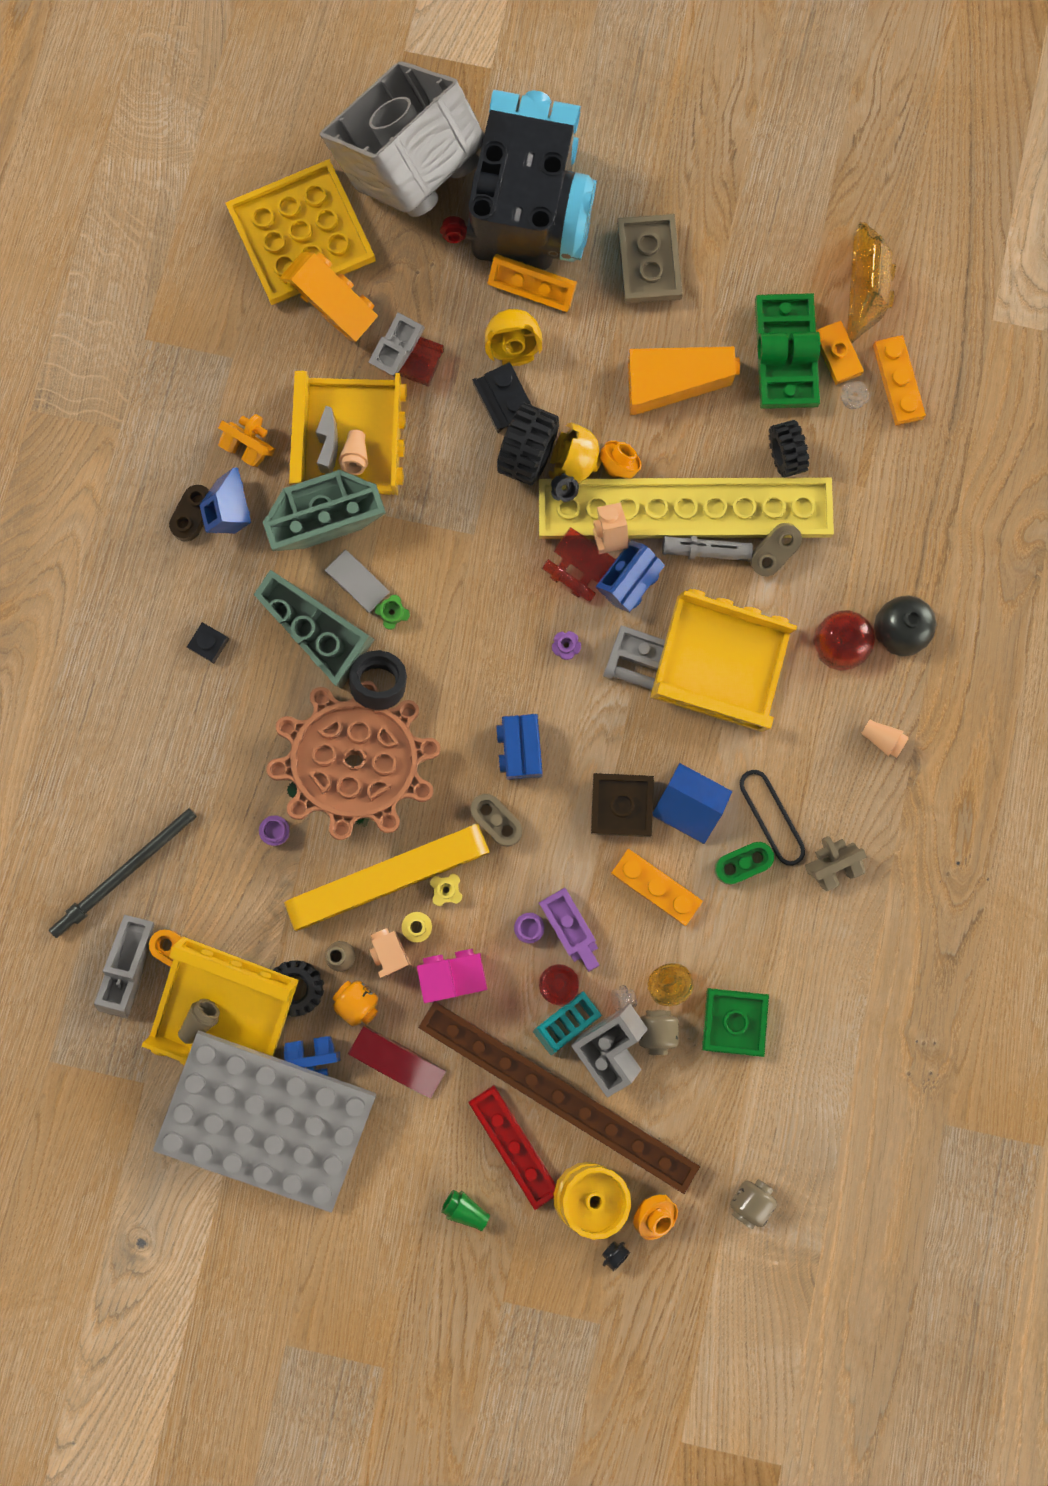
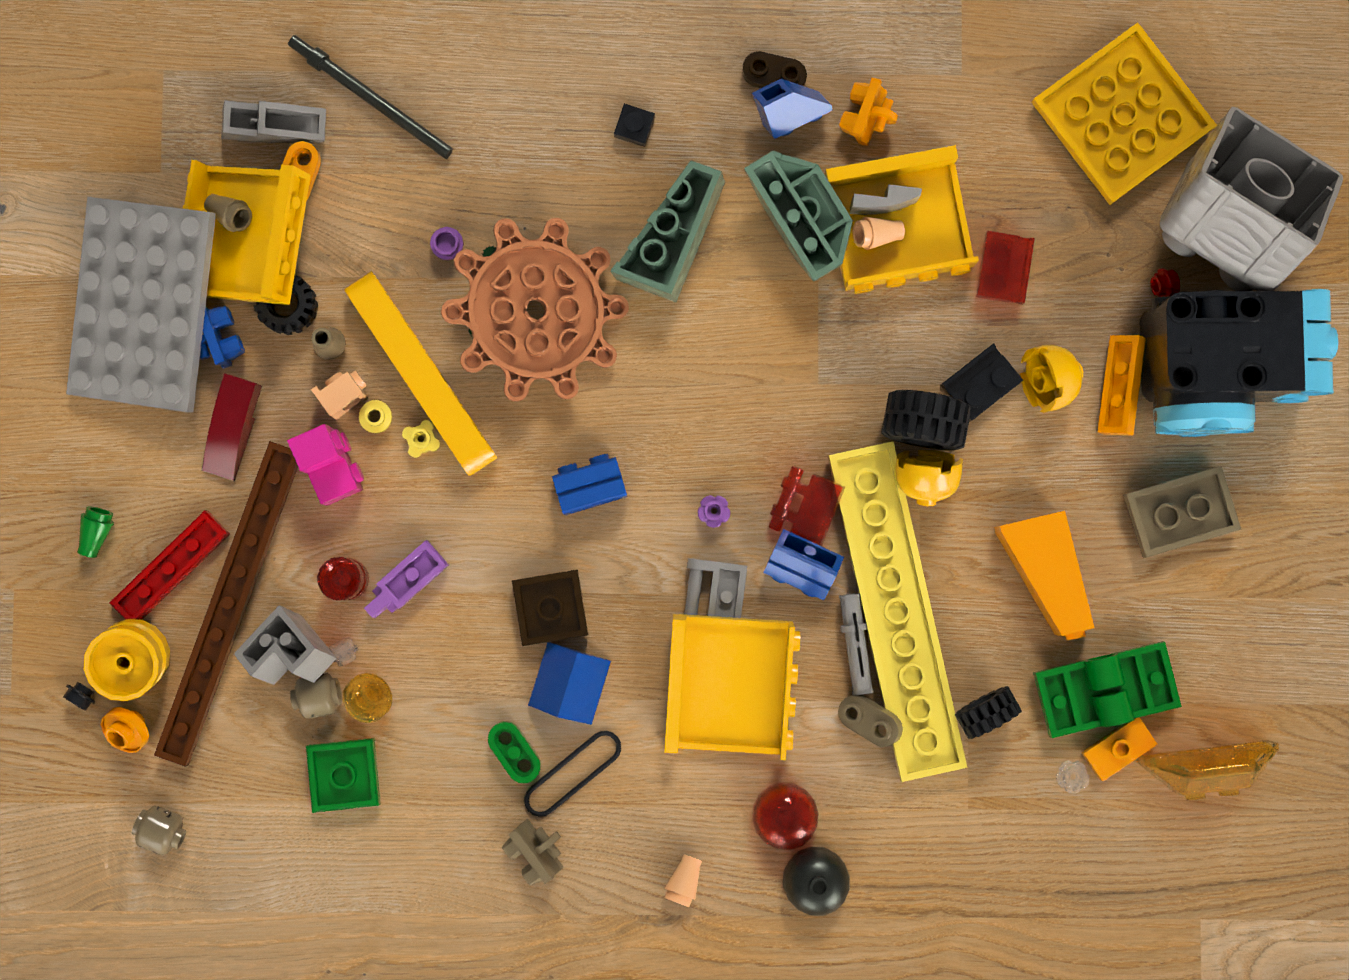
camera: 80 degrees right, 5 degrees up
(330, 294) = (1051, 163): light orange wedge -> none
(355, 1003) = (282, 370): light orange head -> none
(357, 581) = (736, 268): light grey slope -> none
(375, 660) = (653, 310): black tyre -> none
(392, 603) = (710, 323): bright green plate -> none
(397, 344) = (1011, 250): light grey slope -> none
(496, 819) = (503, 474): dark tan plate -> none
(529, 928) = (399, 535): medium lavender plate -> none
(545, 1038) = (279, 589): teal slope -> none
(571, 488) = (878, 472): black plate -> none
(610, 528) = (848, 531): light nougat brick -> none
(620, 459) = (935, 526): light orange plate -> none
(656, 887) = (470, 663): light orange plate -> none
(899, 380) = (1102, 824): light orange plate -> none

